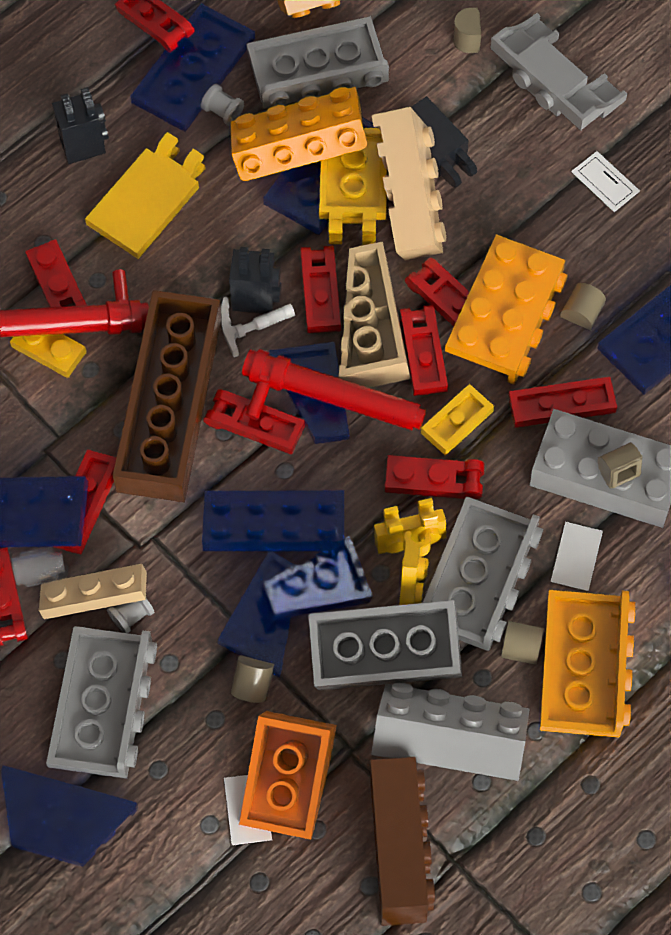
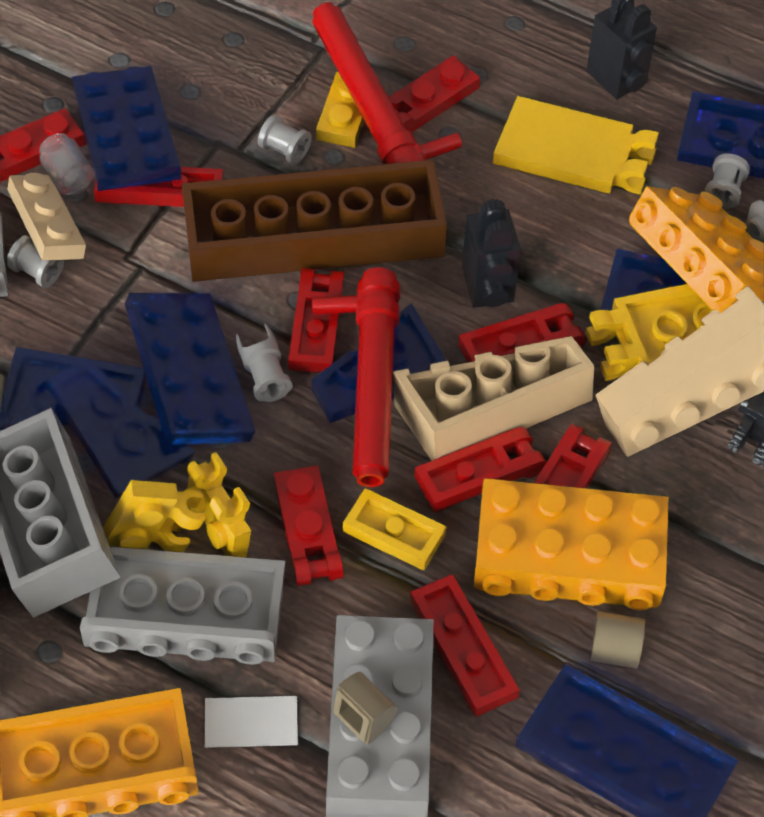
camera: 70 degrees right, 10 degrees down
(69, 397) = (284, 139): none -> light grey bush
(258, 323) = (430, 272): white piece -> none
(287, 468) = (263, 363): none -> light grey piece
(522, 642) = (104, 675): dark tan brick -> none

